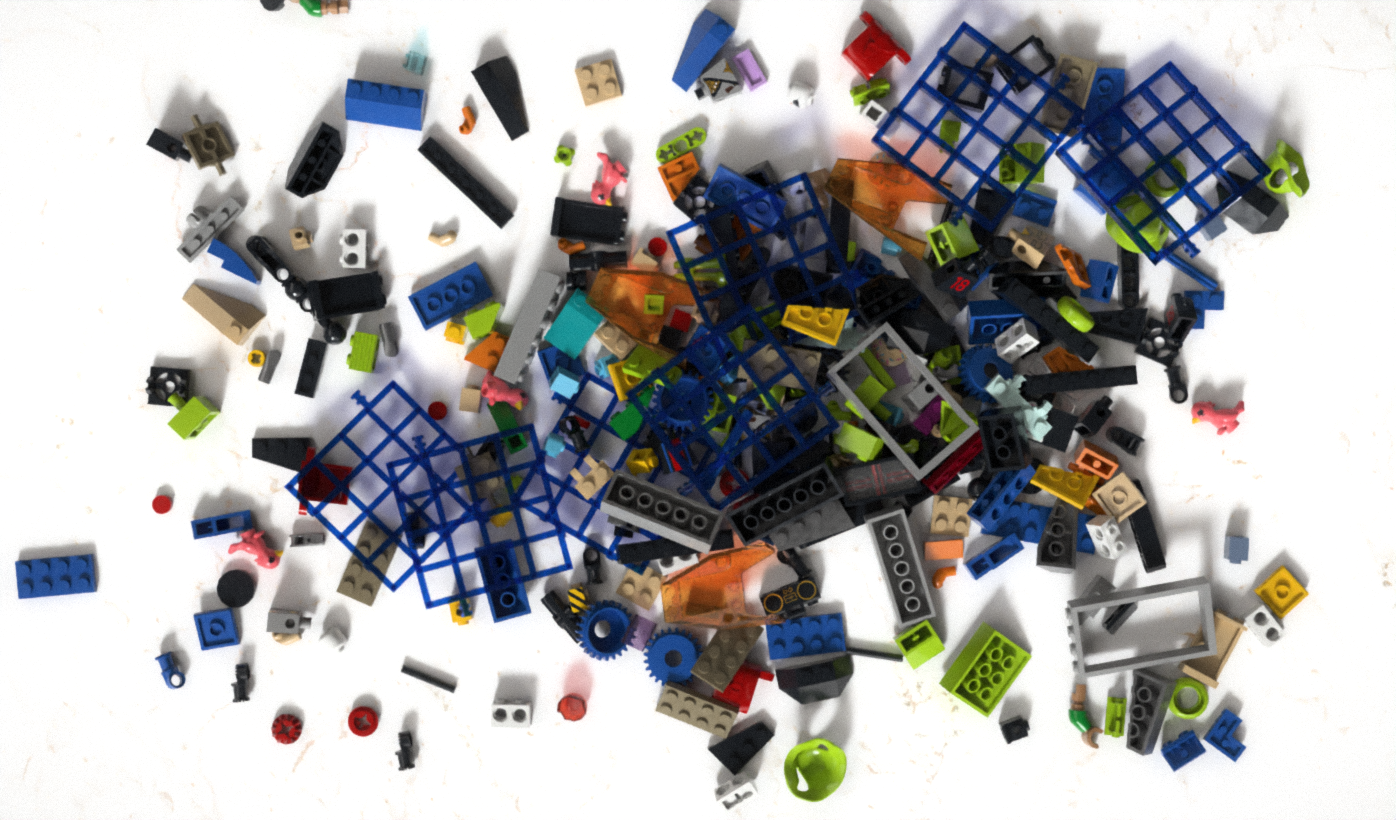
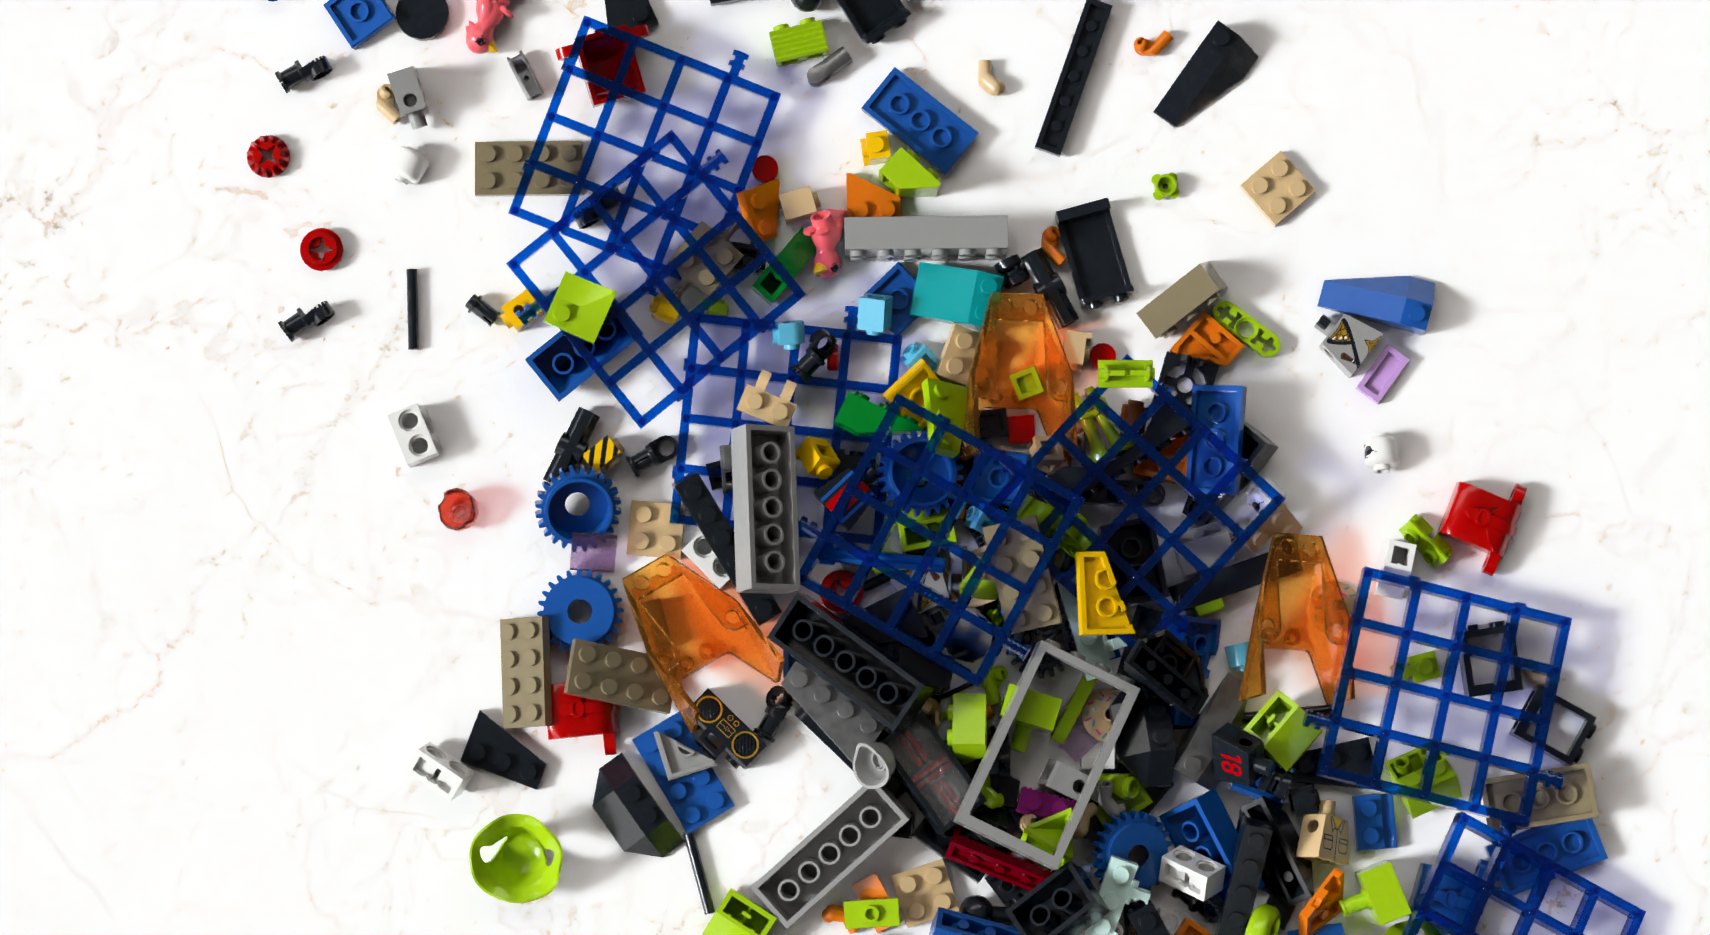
camera: 70 degrees right, 5 degrees down
(448, 634) = (482, 309): none -> black pin
(462, 426) = (760, 208): none -> orange wing
(476, 574) = (579, 307): none -> lime plate
(611, 176) = (1165, 257): coral animal -> none
(644, 178) = (1182, 300): none -> dark tan wedge
(678, 238) = (1125, 373): none -> lime hinge
(797, 635) = (680, 759): none -> light grey tile
(859, 516) = (873, 764): none -> light grey helmet
(896, 416) = (1024, 761): medium azure bracket -> none
(949, 556) = (872, 913): none -> lime plate
(1083, 226) = (1379, 894): none -> lime brick

